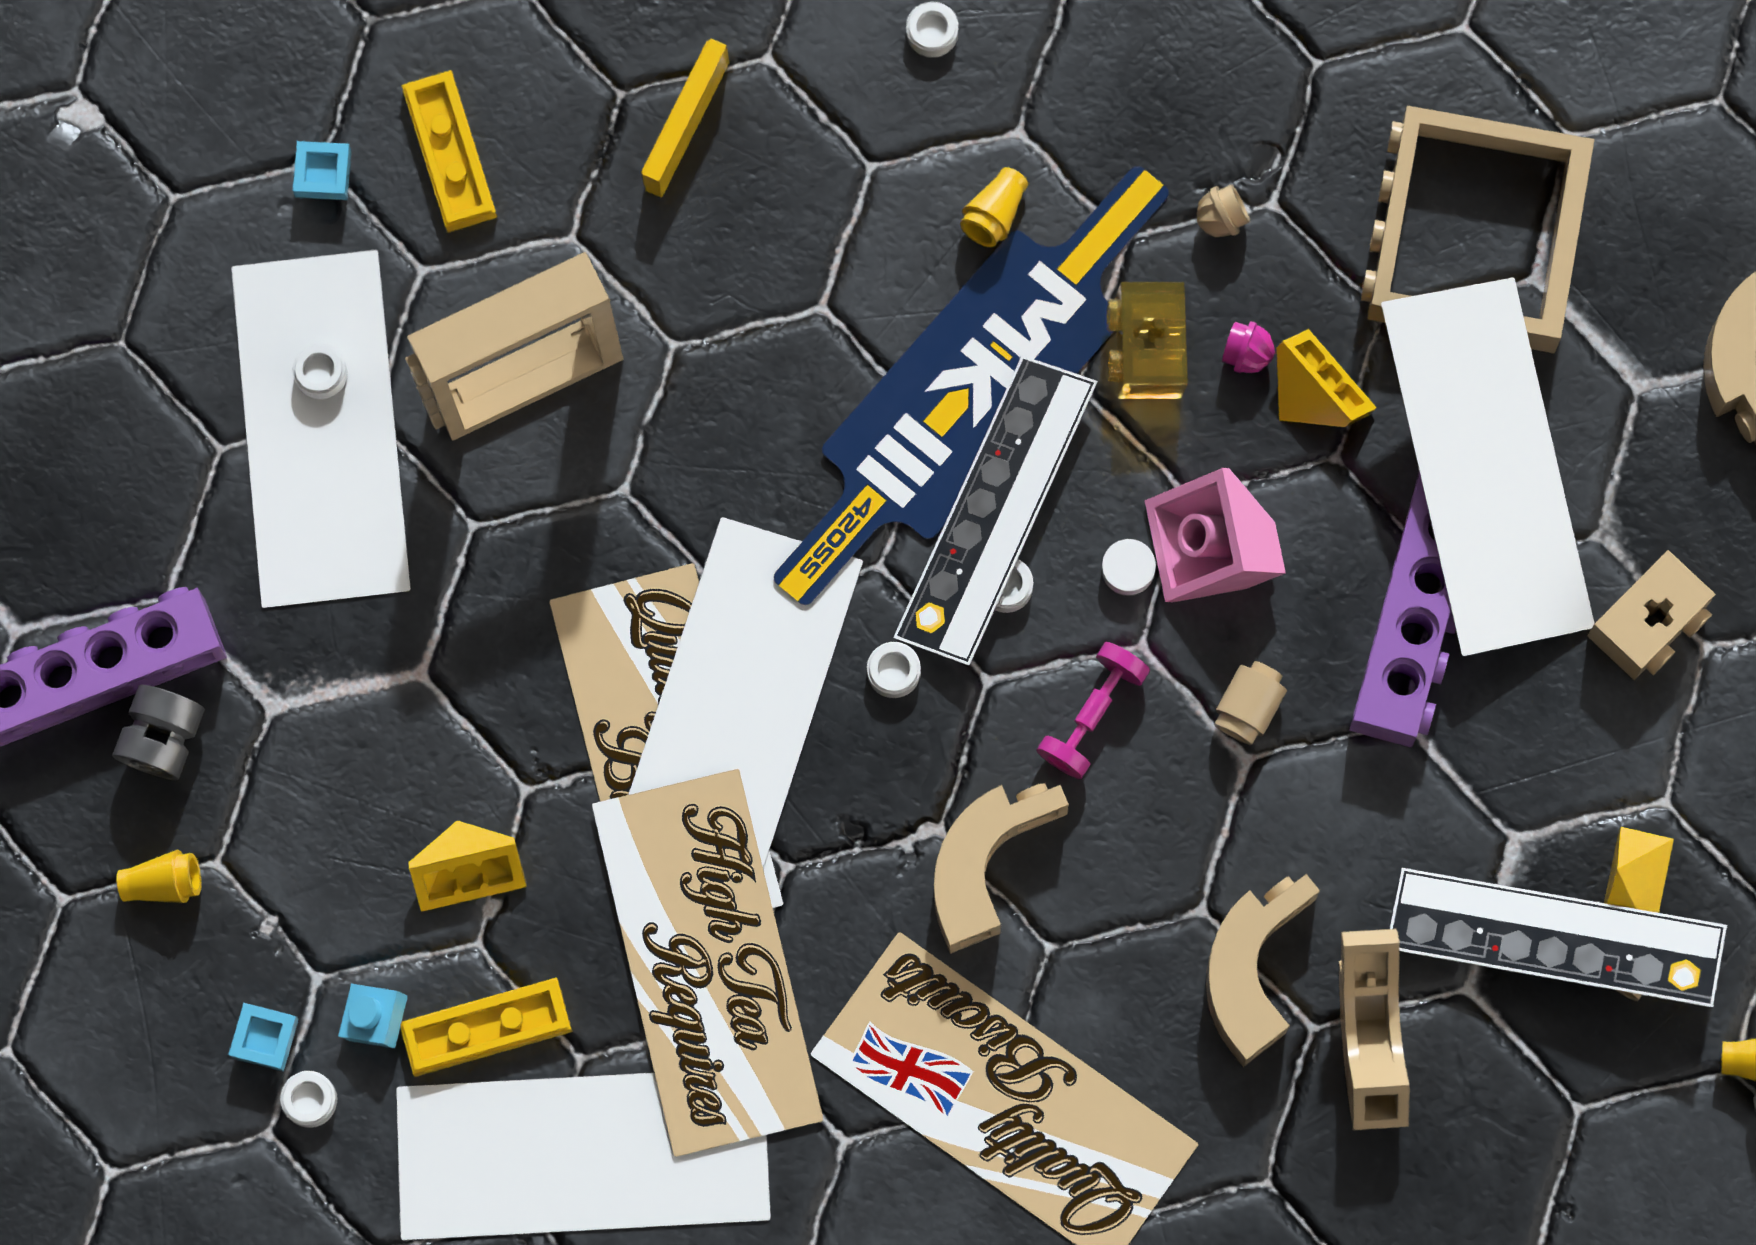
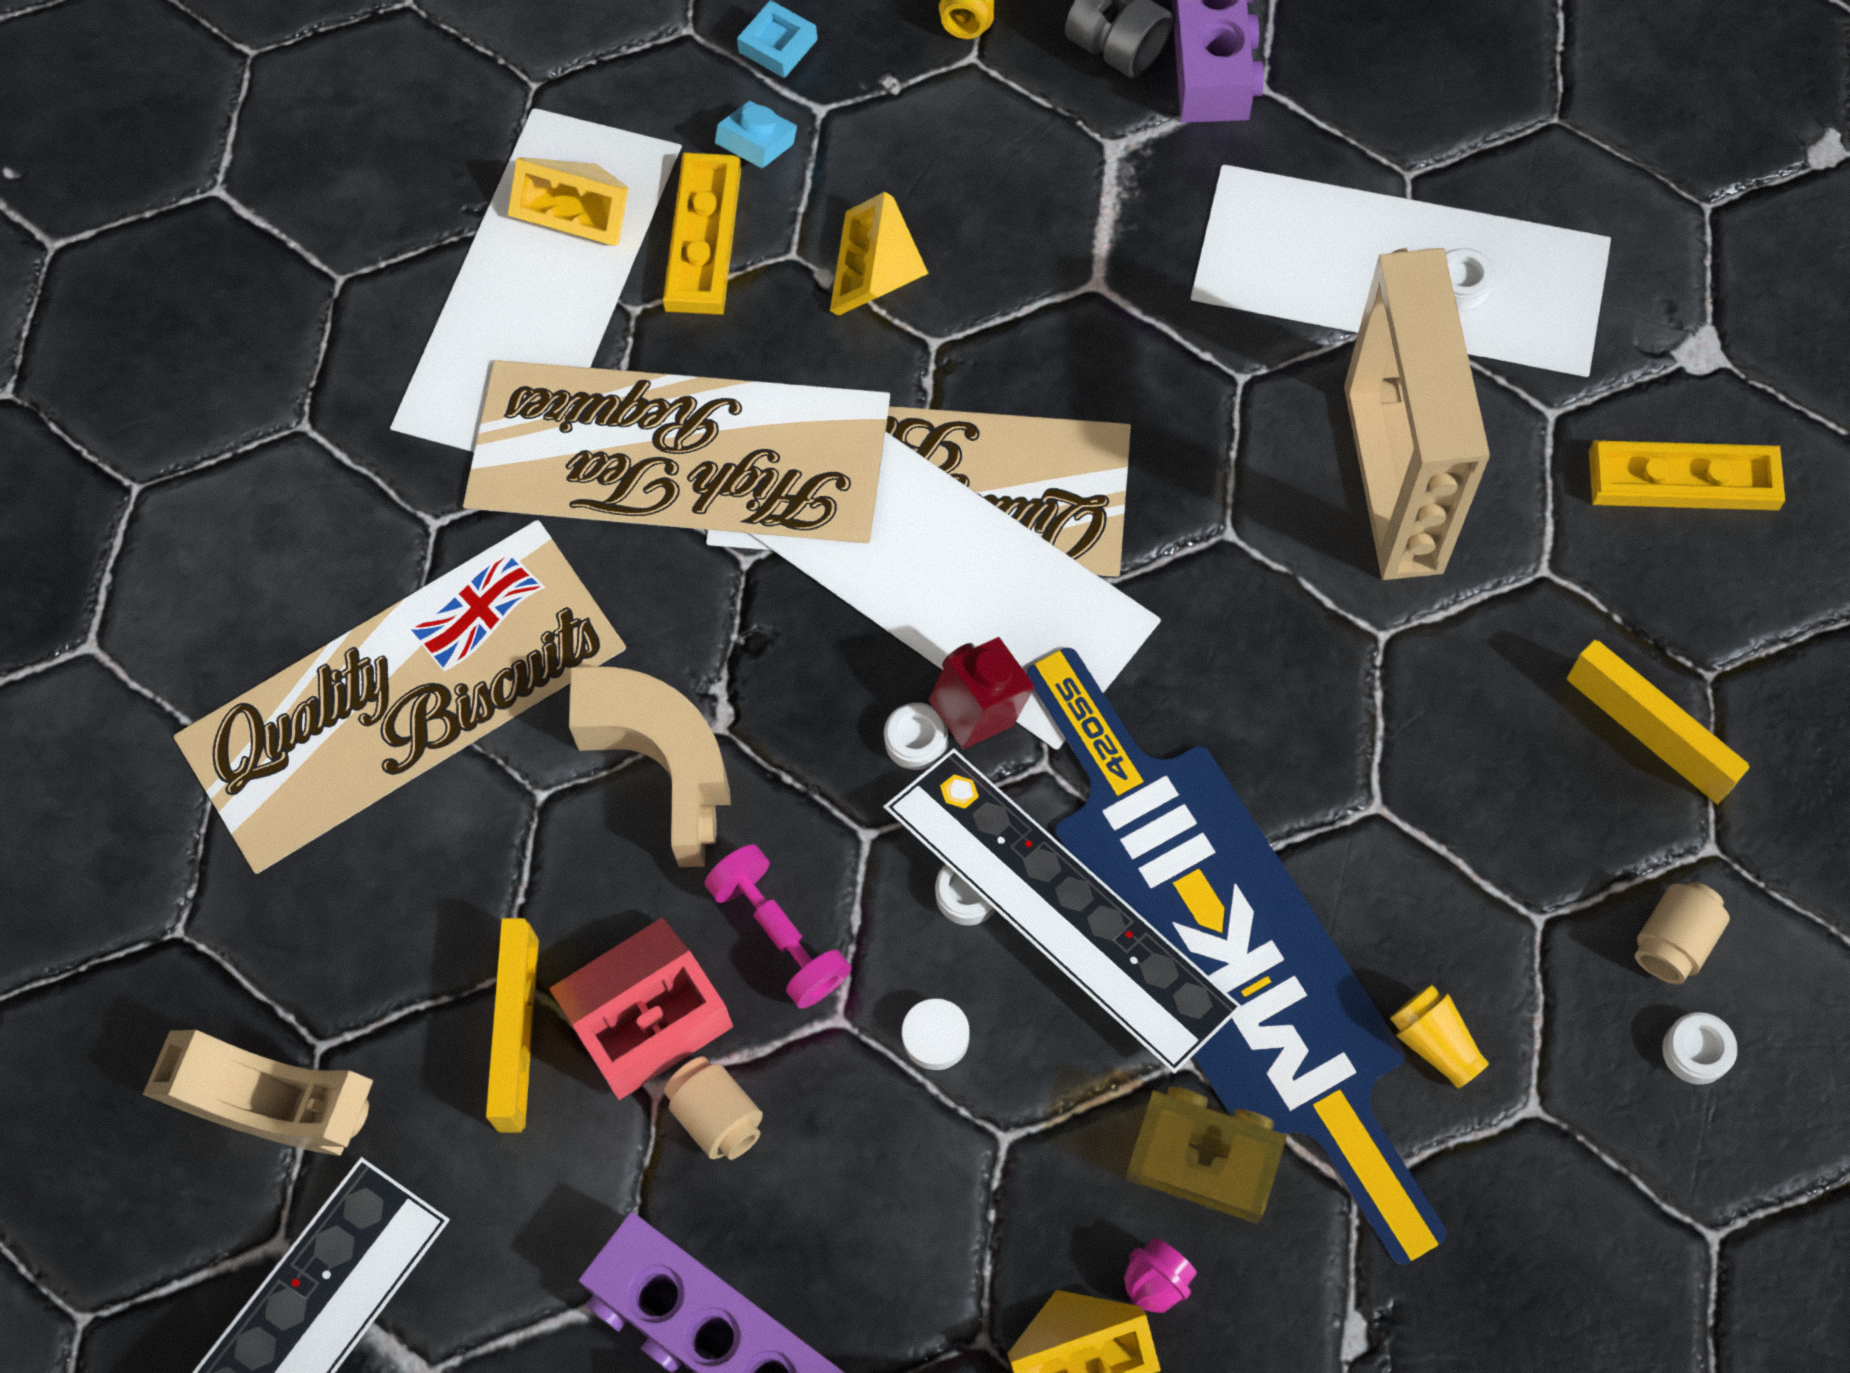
camera: 110 degrees right, 10 degrees down
(308, 1099) = (702, 66): white tile -> none
(322, 170) = (1697, 339): medium azure plate -> none
(492, 1151) = (569, 198): none -> yellow slope
(850, 621) = (980, 691): none -> dark red brick
(851, 59) = (1681, 932): none -> tan brick
(1194, 785) = (642, 1007): none -> coral slope
(1212, 538) = (925, 1139): bright pink slope -> none
(1222, 212) = (1348, 1315): tan plate -> none
(1234, 993) = (386, 961): tan arch -> none
(1246, 876) = (512, 1026): none -> yellow tile

